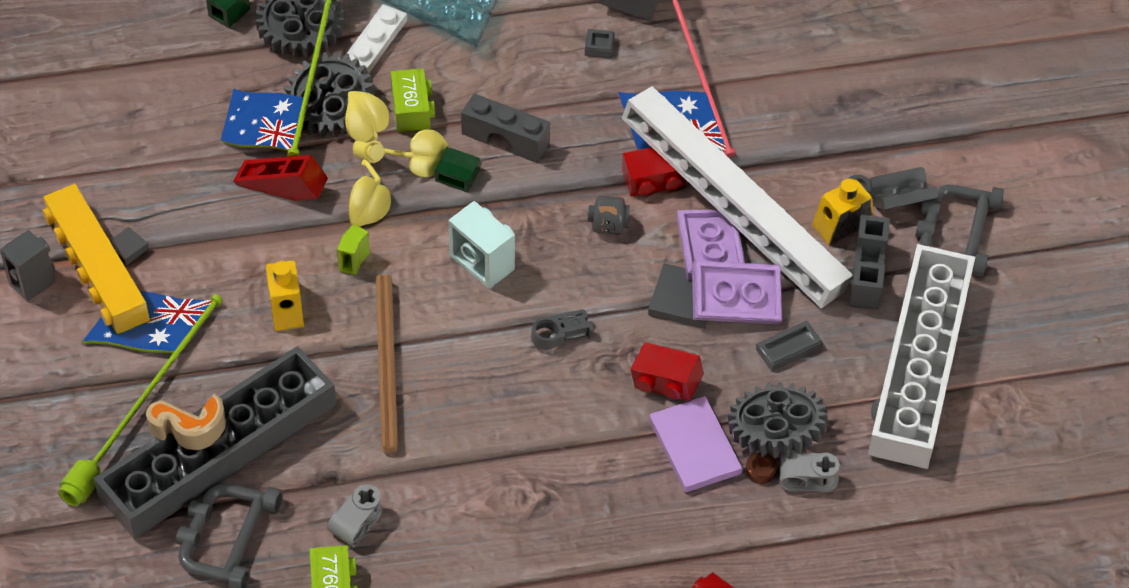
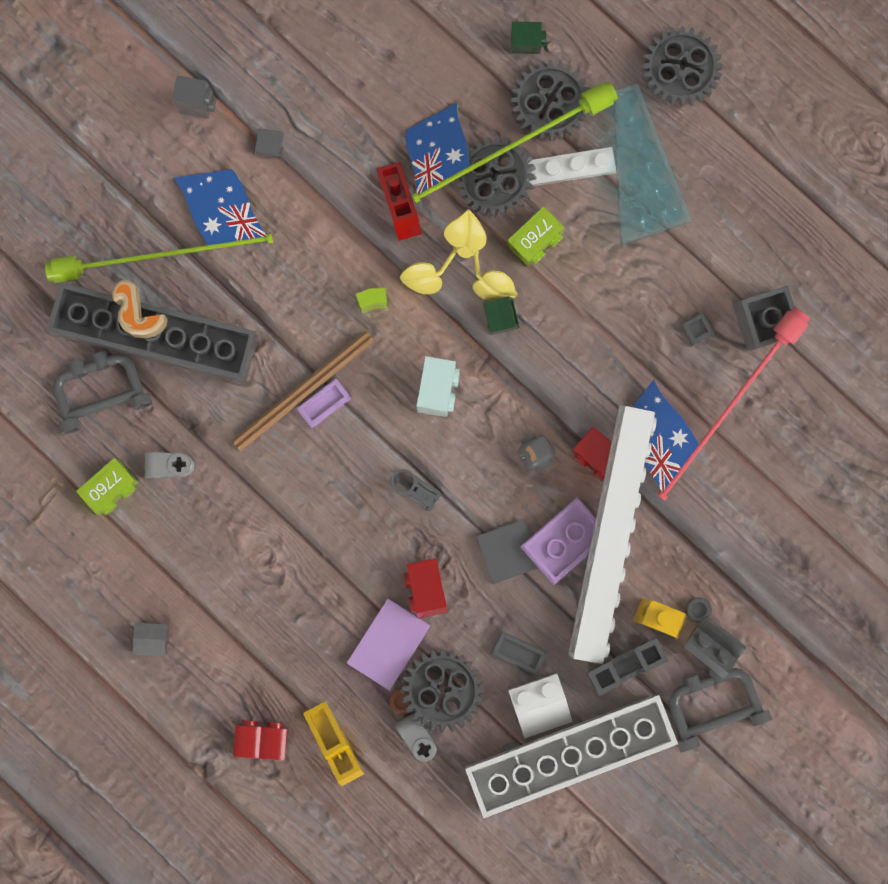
camera: 60 degrees right, 30 degrees up
(95, 259) = (237, 133): yellow brick -> none
(282, 286) = (300, 283): yellow torso -> none
(413, 354) = (324, 403): none -> lavender tile
(524, 131) = (559, 322): dark grey arch -> none
(736, 292) = (530, 590): lavender tile -> none
(759, 547) = (333, 743): none -> yellow slope
(853, 354) = (540, 705): none -> white slope

